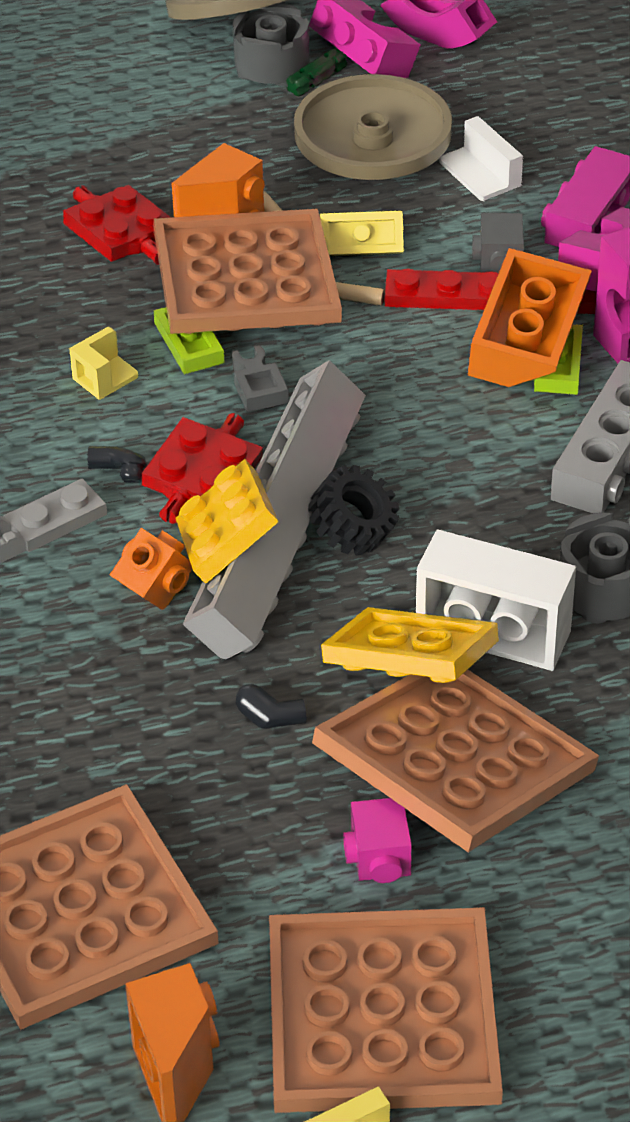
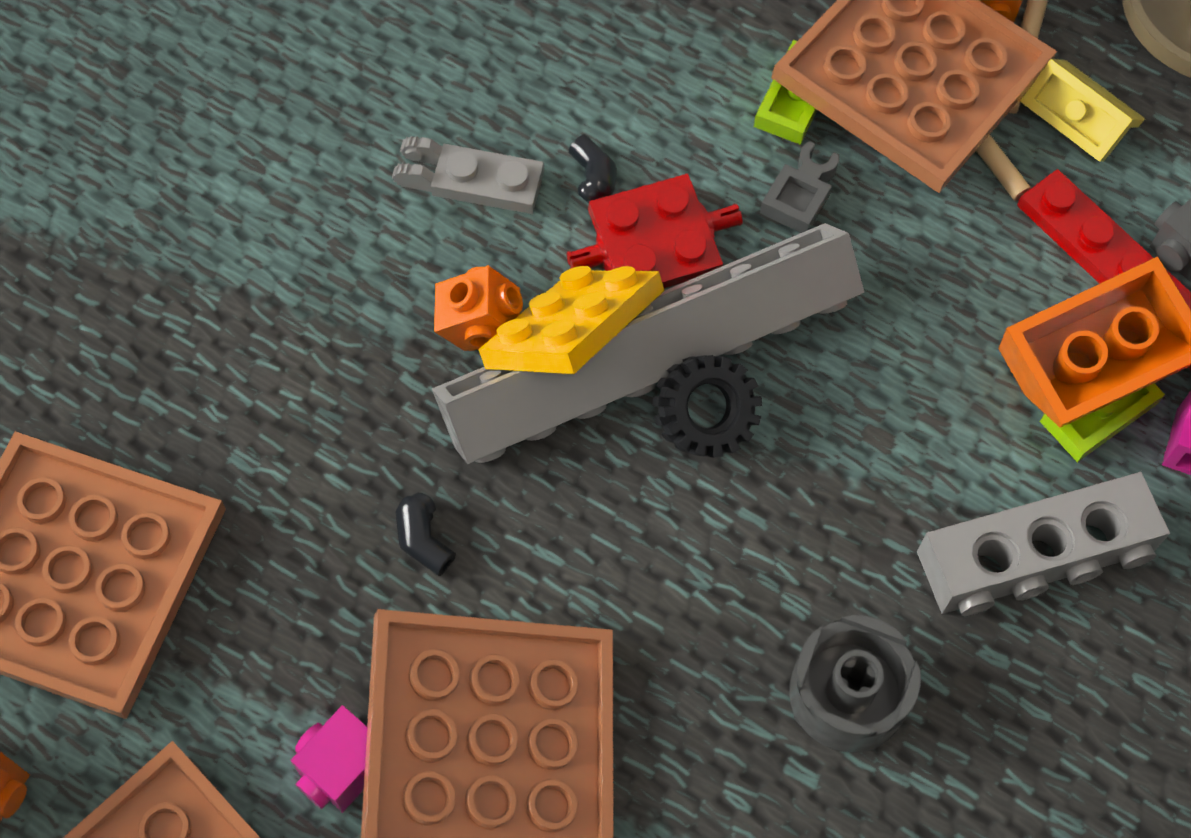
camera: 45 degrees right, 20 degrees up
(98, 366) = (692, 59): light yellow panel -> none
(410, 644) = (583, 595): yellow plate -> none
(501, 585) = (705, 621): white brick -> none

